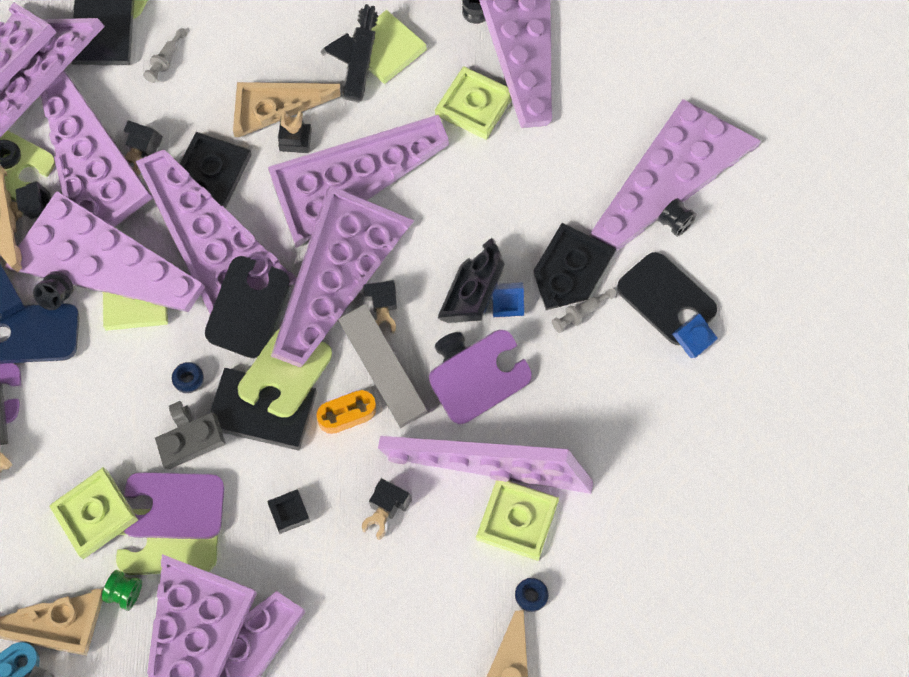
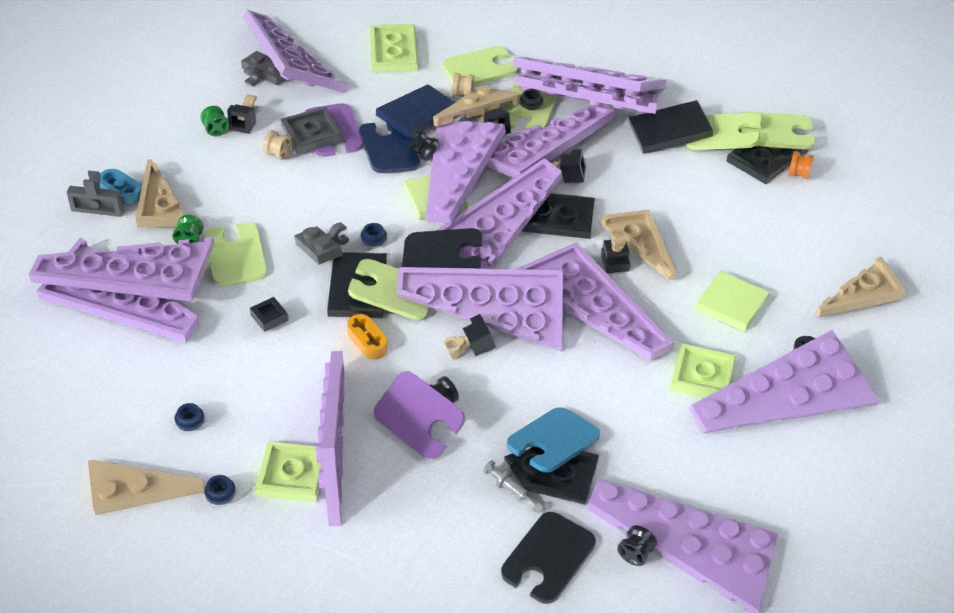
camera: 75 degrees right, 20 degrees down
(93, 513) = (248, 205): yellowish green tile -> none
(160, 61) = (657, 167): light grey piece -> none
(182, 505) = (263, 254): medium lavender piece -> none
(356, 53) = (710, 274): black piece -> none
(383, 366) = (412, 348): light grey tile -> none
(385, 501) = (289, 373): black piece -> none
(419, 608) = (189, 417): none -> dark blue plate
(473, 286) = (511, 395): black tile -> none
(508, 300) = (502, 423): blue plate -> none
(533, 249) = (558, 434): none -> dark azure piece
(695, 336) = (510, 581): blue plate -> none

